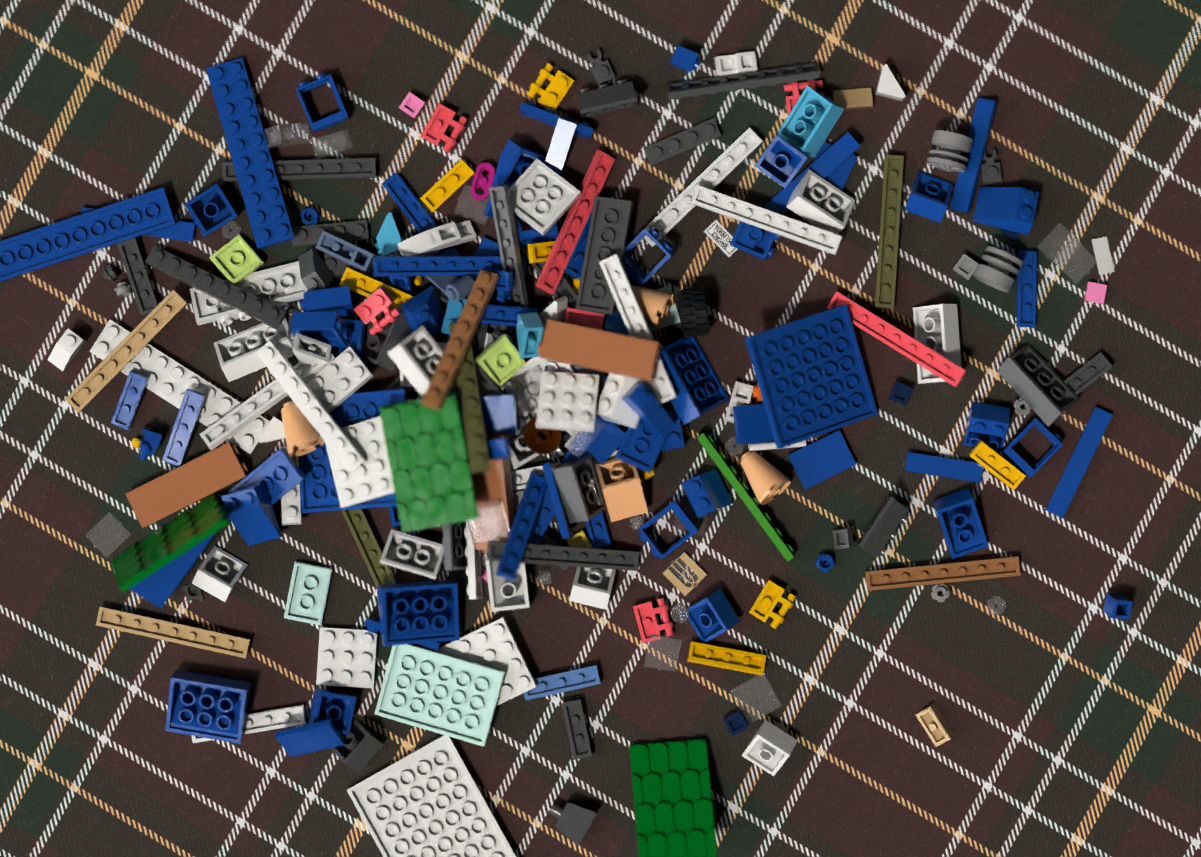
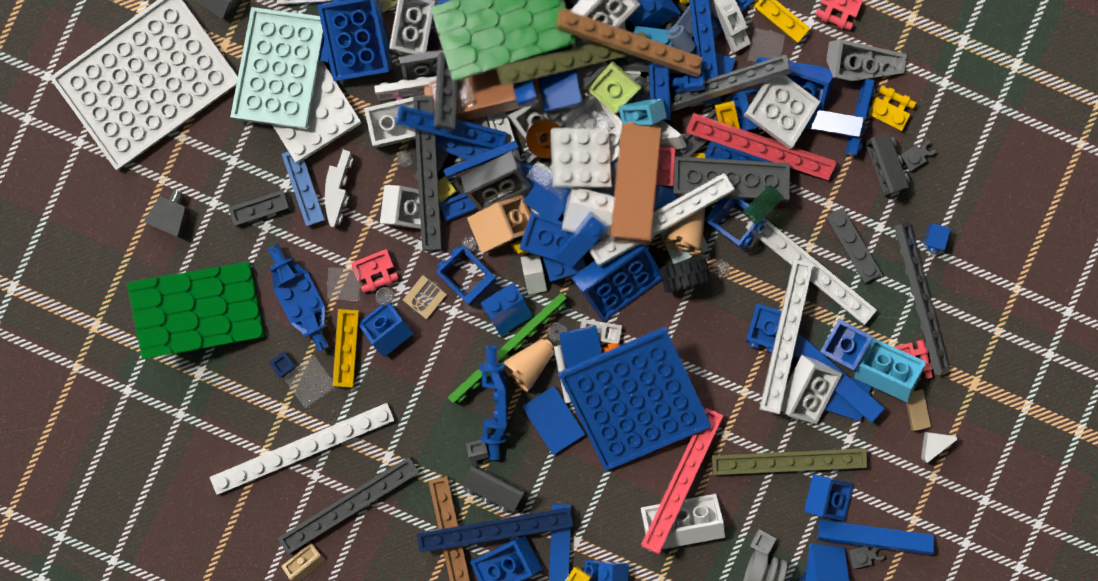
camera: 85 degrees right, 0 degrees up
(482, 182) = (790, 48): dark pink plate -> none
(490, 528) = (445, 96): none -> dark grey plate
(501, 115) = (859, 61): none -> light grey wedge
(574, 651) = (334, 196): none -> white slope
(634, 227) = (763, 204): none -> clear green plate
(671, 699) = (298, 297): none -> blue plate
(674, 462) = (533, 274): none -> white slope
(690, 275) = (722, 268): none -> clear plate
(720, 237) = (763, 294): white sticker -> none
(735, 63) = (938, 289): white slope -> none
(767, 601) = (405, 381): yellow plate -> none
(769, 748) = (261, 401): white slope -> none
(779, 510) = (500, 418): none -> blue plate
(821, 713) = (302, 448): none -> white plate
(825, 567) = (451, 440): blue plate -> none
(883, 673) = (348, 505): none -> dark grey plate
(900, 393) = (628, 491): dark blue plate -> none
(923, 530) = (494, 529): none -> dark blue plate
(935, 592) = (435, 558): light grey plate -> none
(949, 153) = (873, 512): light grey wheel -> none

